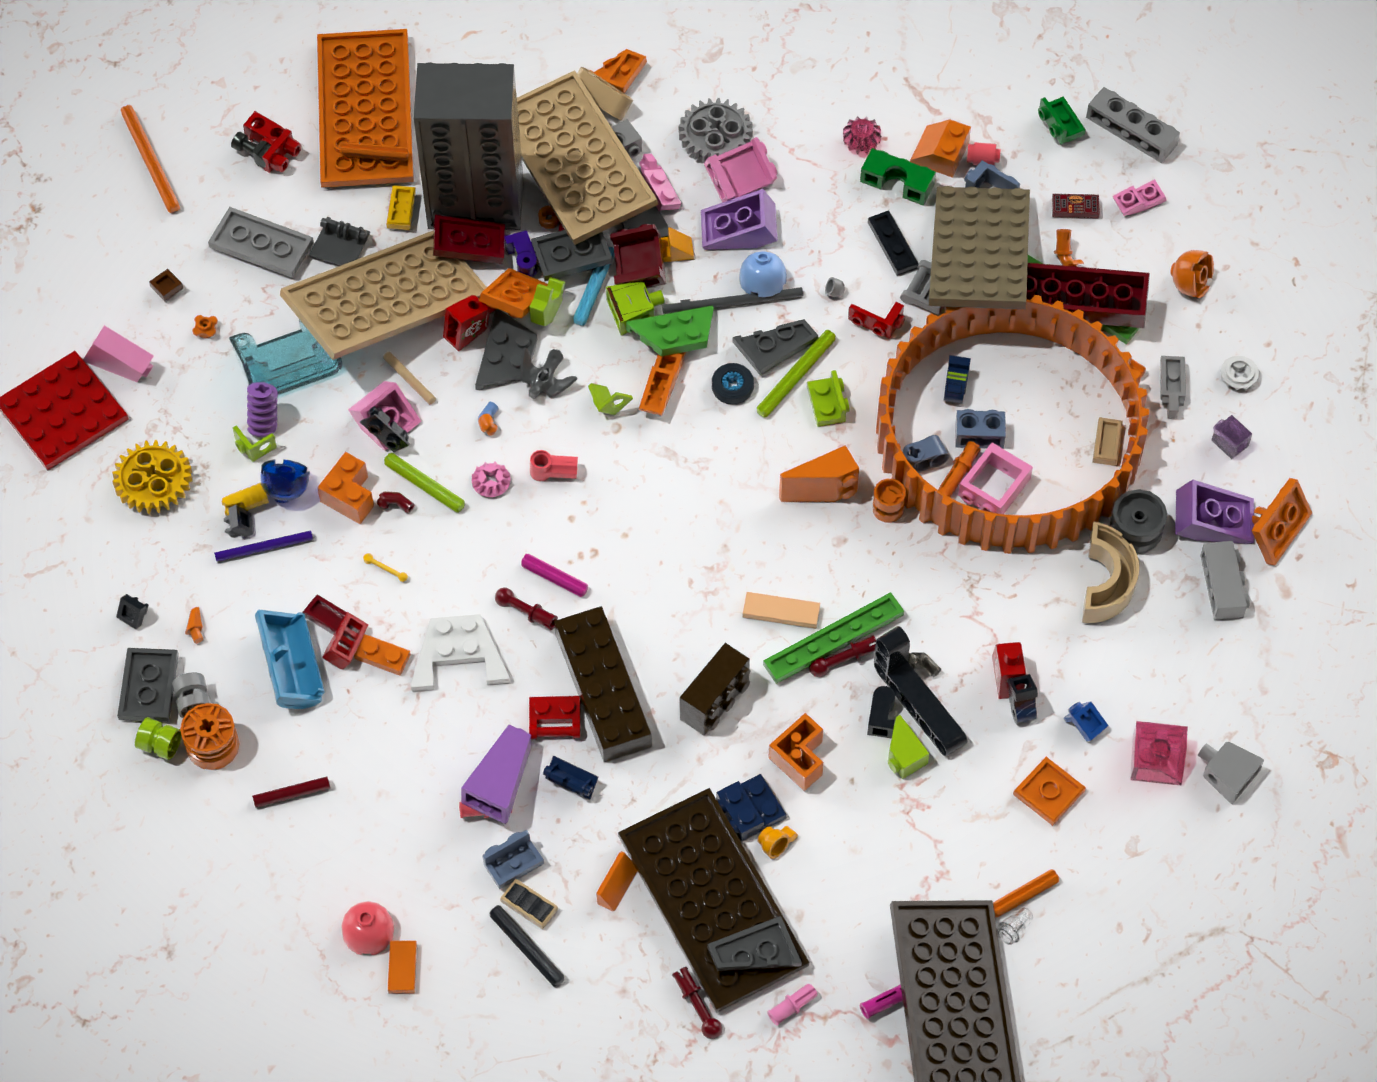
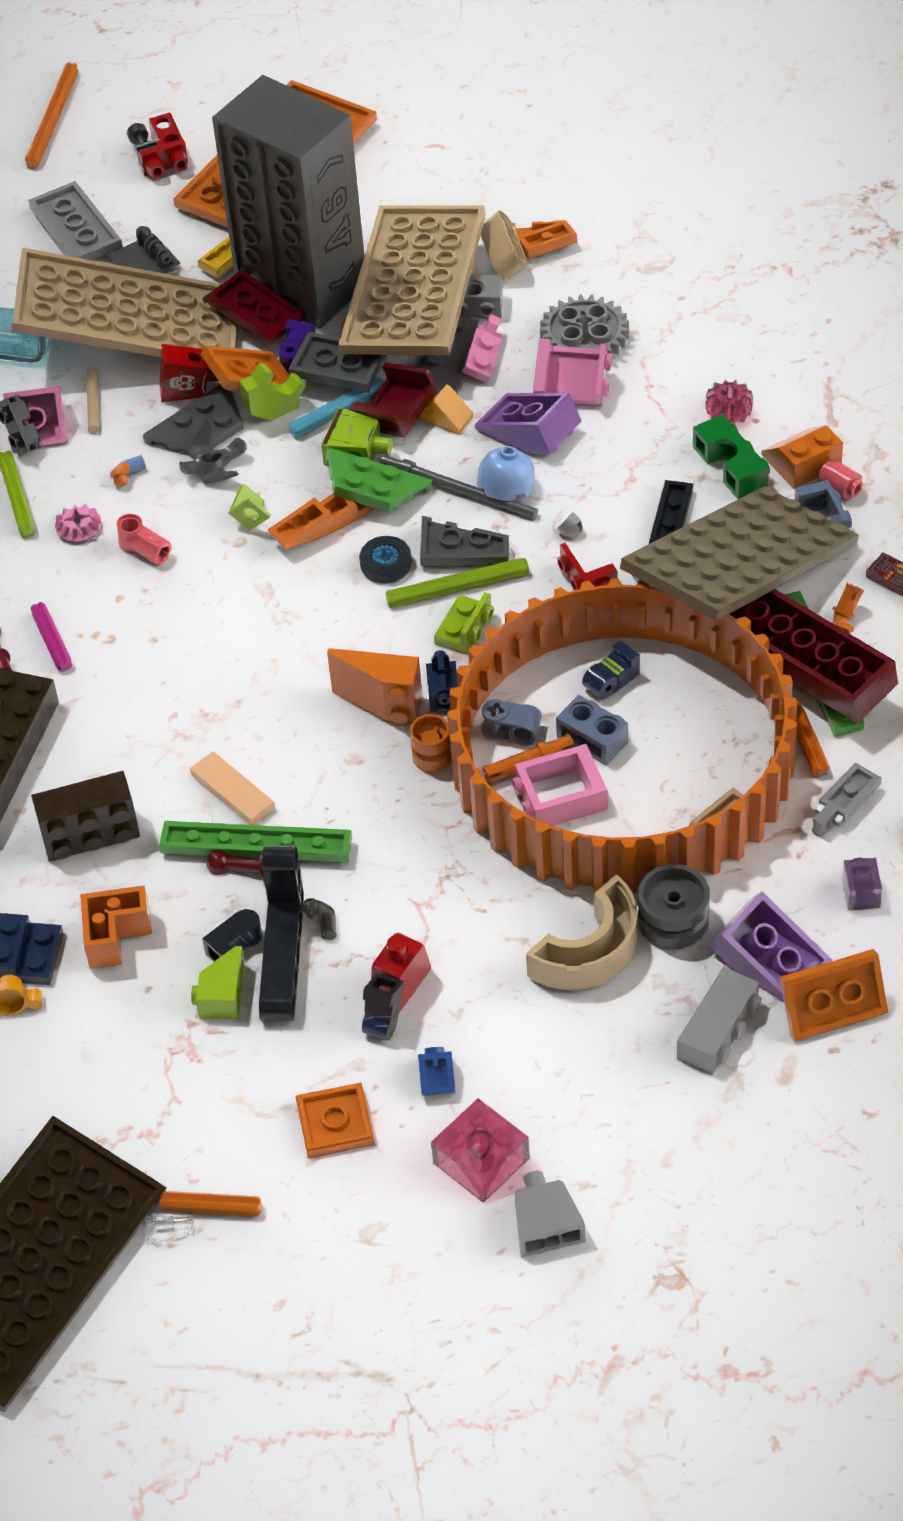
camera: 40 degrees right, 10 degrees down
(863, 459) = (440, 679): none -> dark blue hinge

